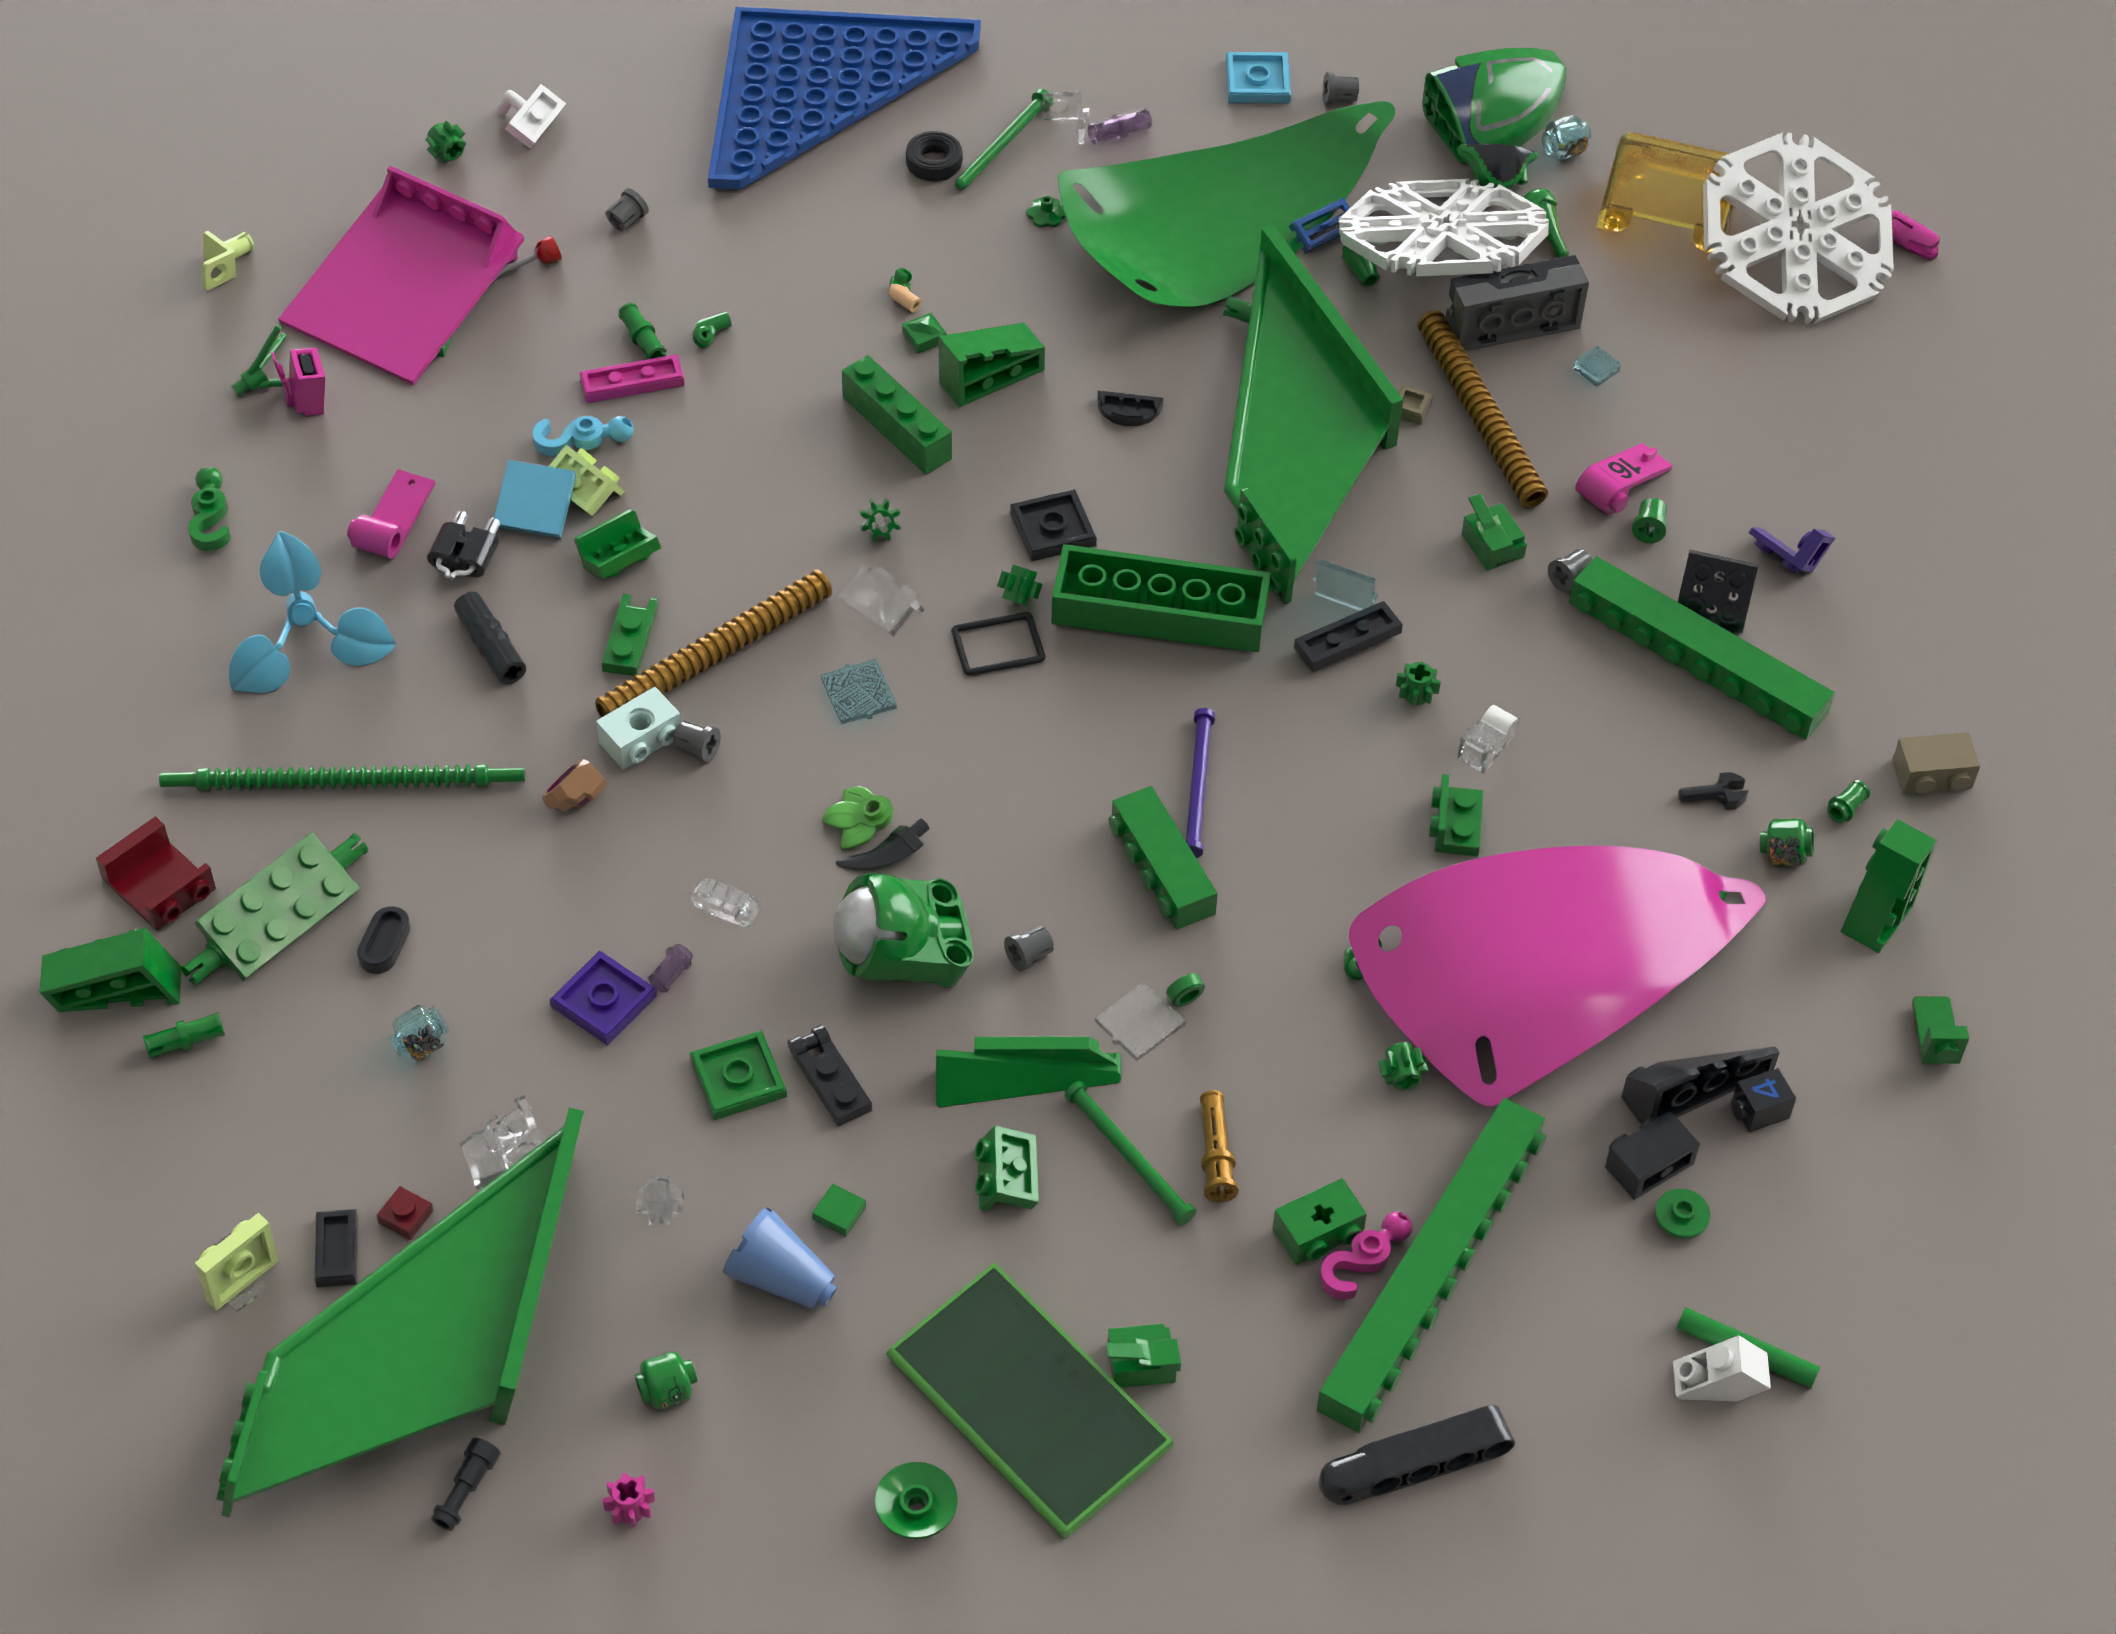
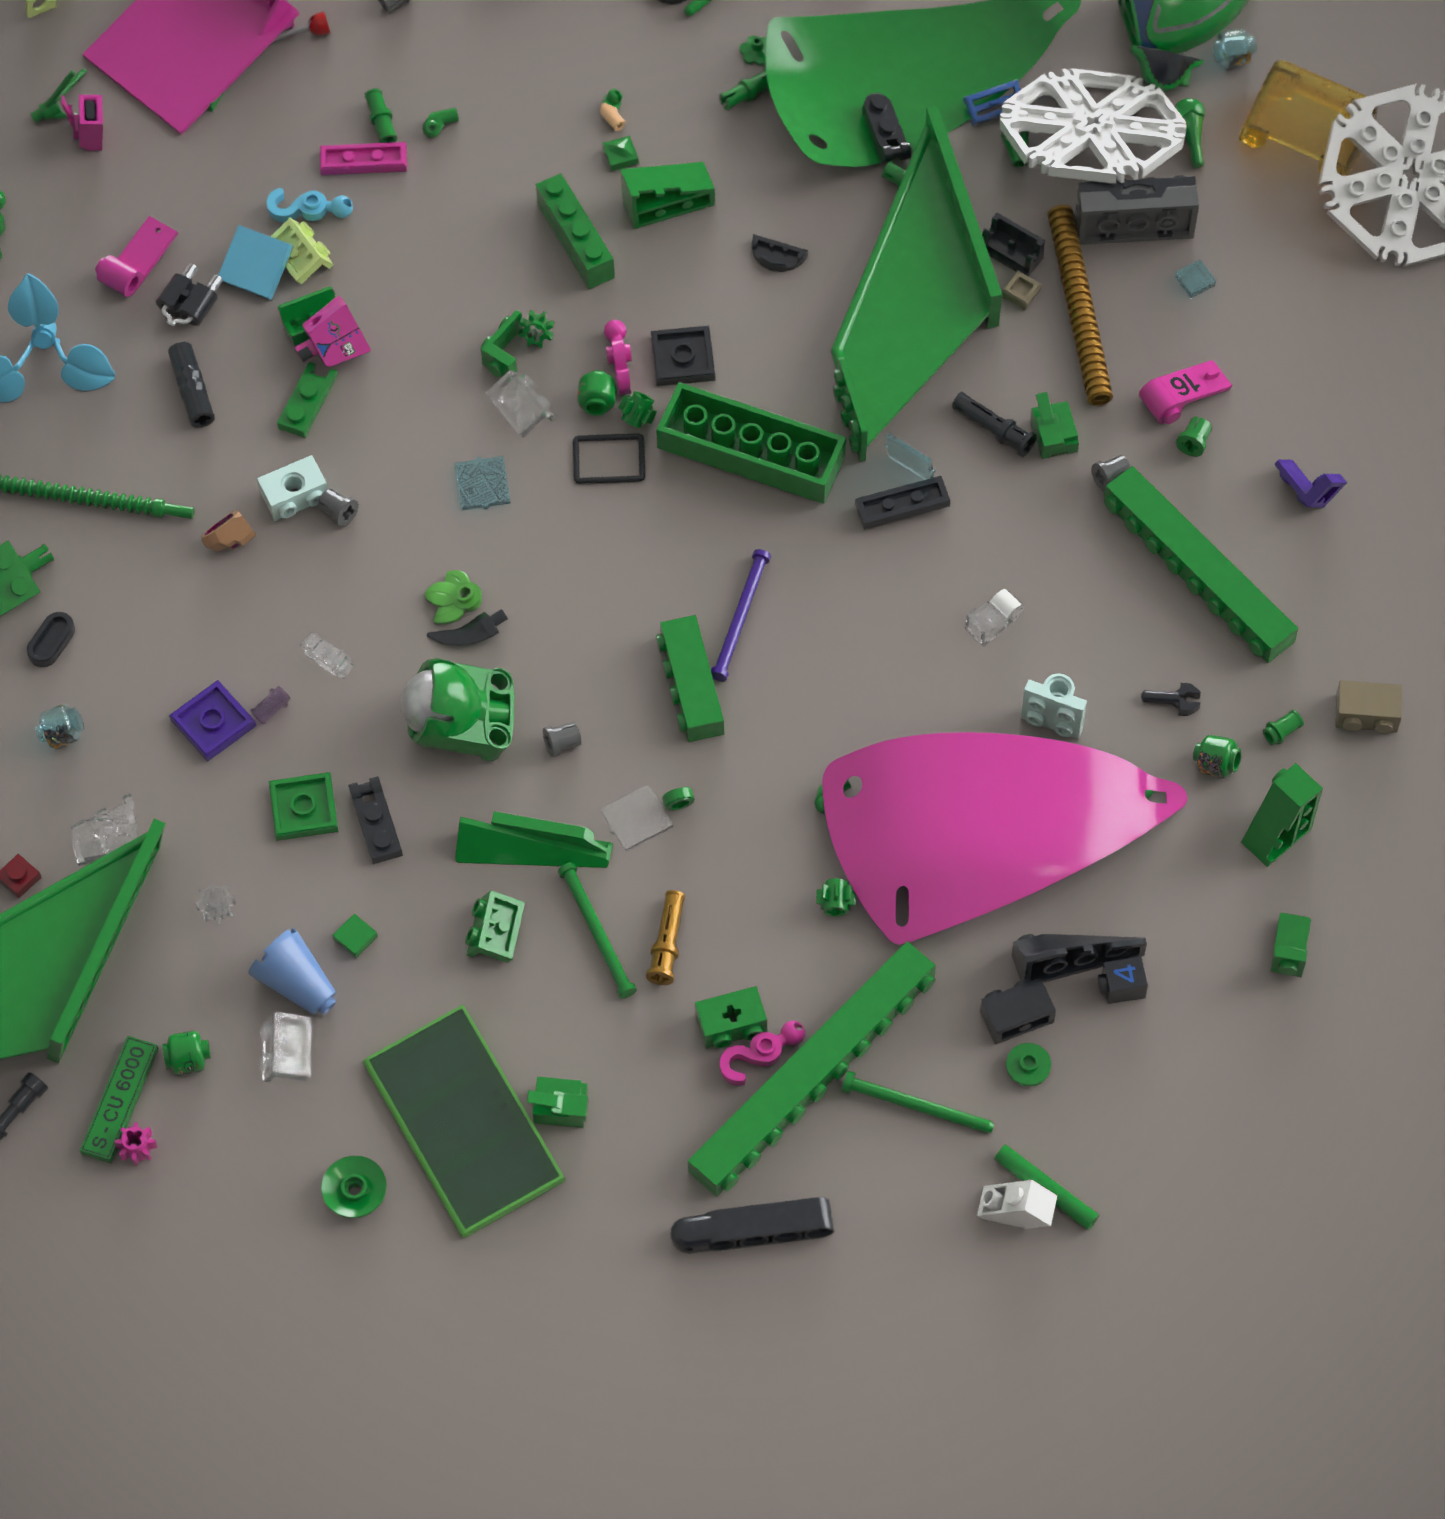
camera: 15 degrees right, 10 degrees up
(593, 1452) = (119, 1099): none -> green tile
(647, 557) = (332, 335): none -> dark pink torso
(721, 642) = (378, 420): pearl gold piece -> none
(788, 1352) = (286, 1047): none -> clear bracket
(838, 553) = (492, 348): none -> green bracket
(968, 574) = (596, 392): none -> green head
(982, 533) = (618, 354): none -> dark pink piece
(1048, 250) = (744, 91): none -> green pin
(1213, 266) = (885, 128): none -> black plate
(1397, 357) = (1013, 245): none -> black hinge
(1418, 683) = (948, 556): green gear -> none
(1439, 544) = (1005, 430): none -> black pin
(1457, 819) = (946, 685): green bracket -> none
(1581, 1283) = (914, 1103): none -> green bar
(1591, 814) = (1054, 706): none -> light aqua plate
(1719, 578) = (1227, 508): black plate -> none

